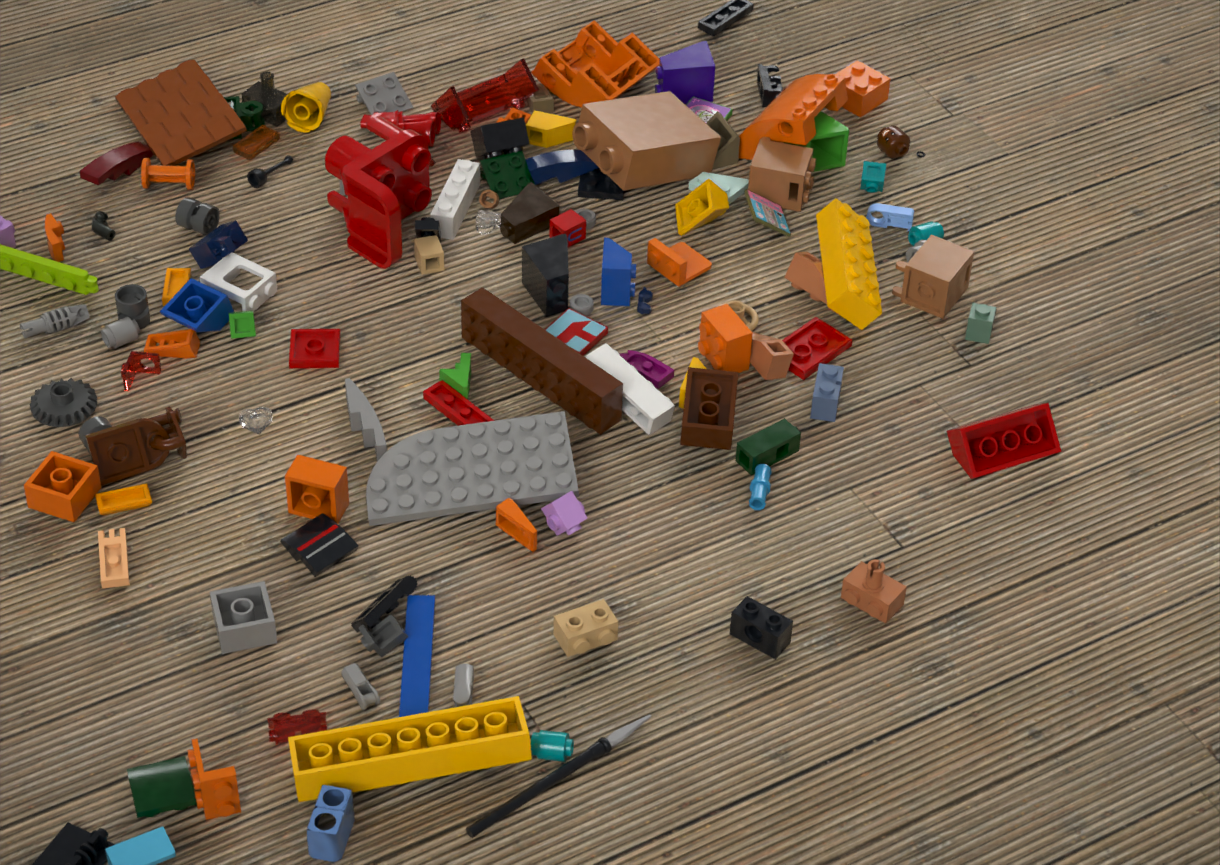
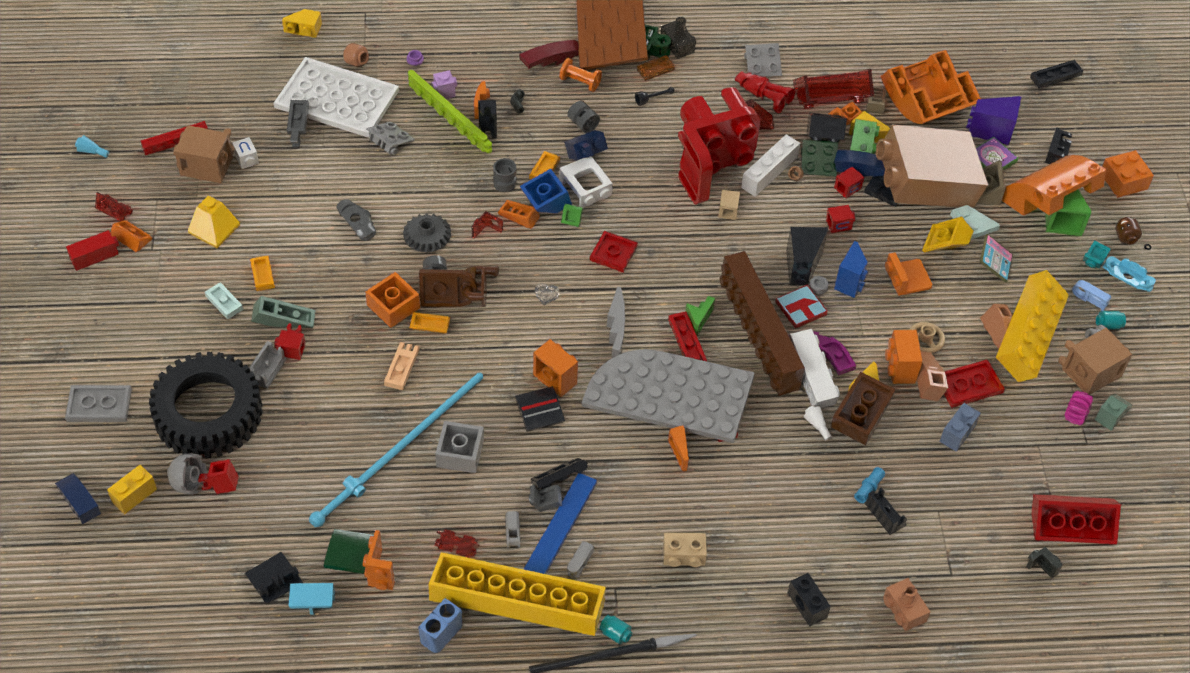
camera: 25 degrees right, 10 degrees up
(56, 320) = (452, 166): light grey hinge -> none
(77, 248) = (488, 116): none -> black hinge
(120, 332) = (488, 192): light grey brick -> none
(127, 711) = (355, 486): none -> medium azure bar
(306, 106) = (703, 51): yellow cone -> none
(427, 227) = (735, 184): black plate -> none
(487, 221) = (787, 190): clear tile -> none
(528, 214) = (816, 196): dark brown slope -> none
(549, 133) = (864, 135): none -> bright green brick
(558, 187) = (849, 182): none -> red brick
(565, 514) = (716, 453): lavender brick -> none
(589, 216) = (860, 213): light grey tile -> none
(644, 297) = (868, 295): dark blue piece -> none
(657, 439) = (815, 417): none -> white cone
(768, 446) = (893, 454): dark green brick -> none
(782, 173) = (1022, 229): medium nougat container -> none
(793, 509) = (885, 512): none -> black hinge
(927, 181) = (1140, 278): none -> medium azure piece
(944, 328) = (1078, 407): none -> dark pink gear
(998, 493) = (1046, 560): none -> pearl dark grey bracket

